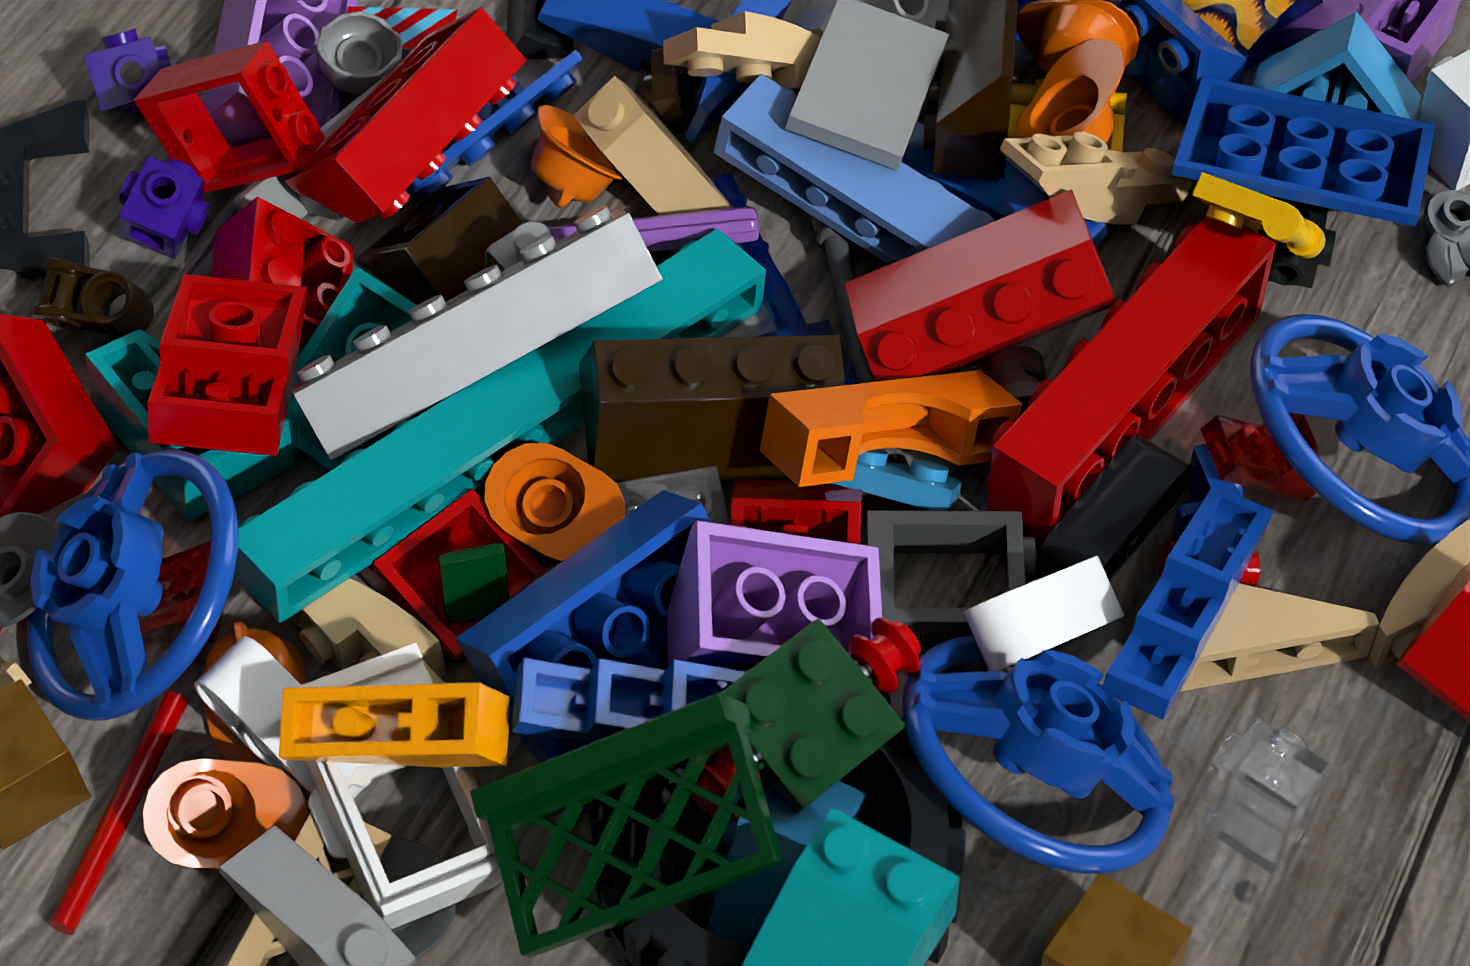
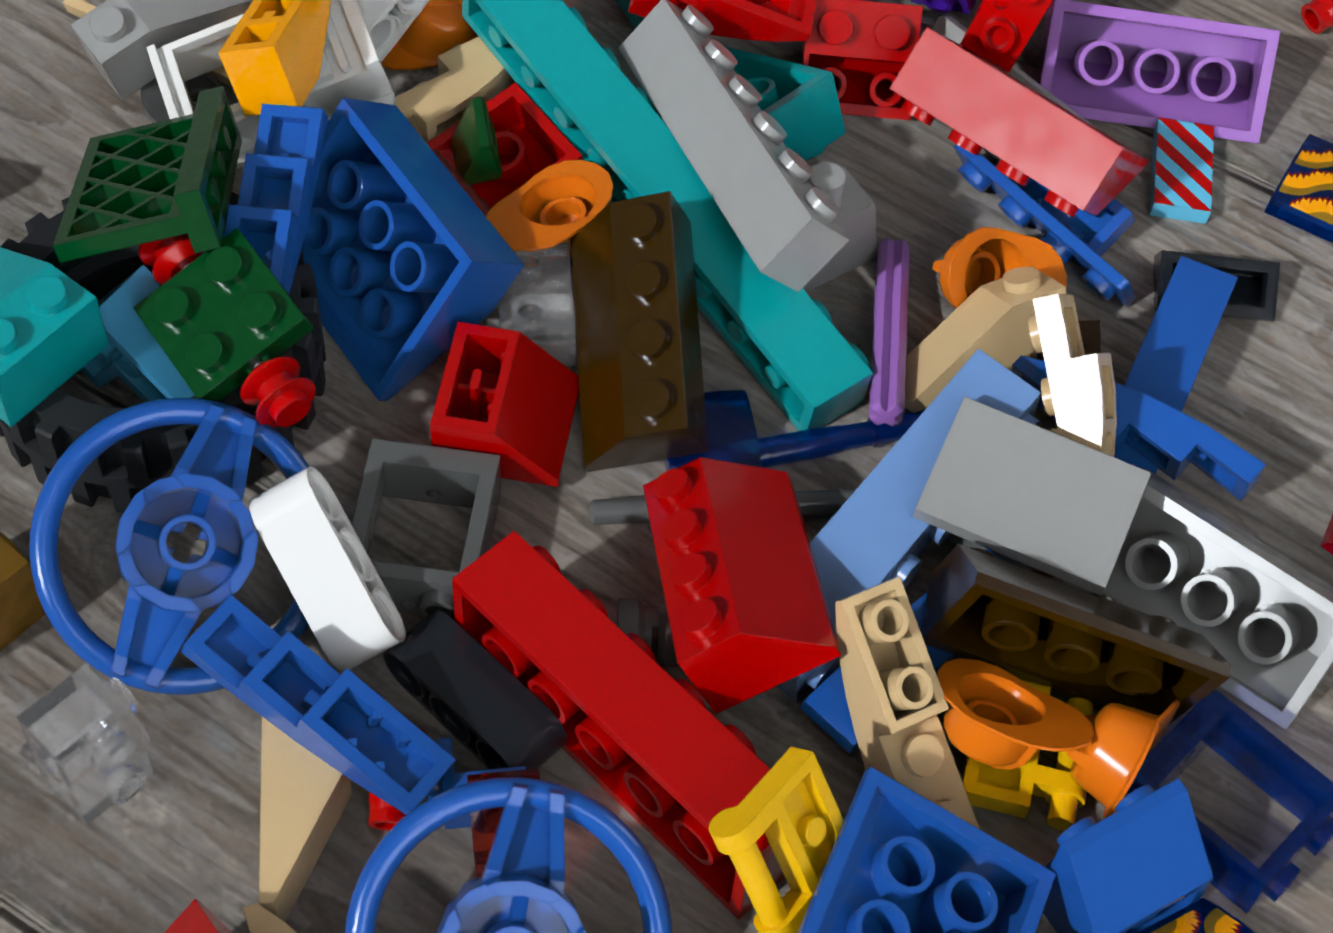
camera: 90 degrees right, 0 degrees up
(357, 51) = (1134, 111): light grey hair -> none
(442, 241) = (897, 171): dark brown slope -> none
(756, 589) = (372, 341): medium lavender slope -> none
(823, 430) = (567, 397): orange arch -> none
(921, 484) = (555, 496): dark azure plate -> none

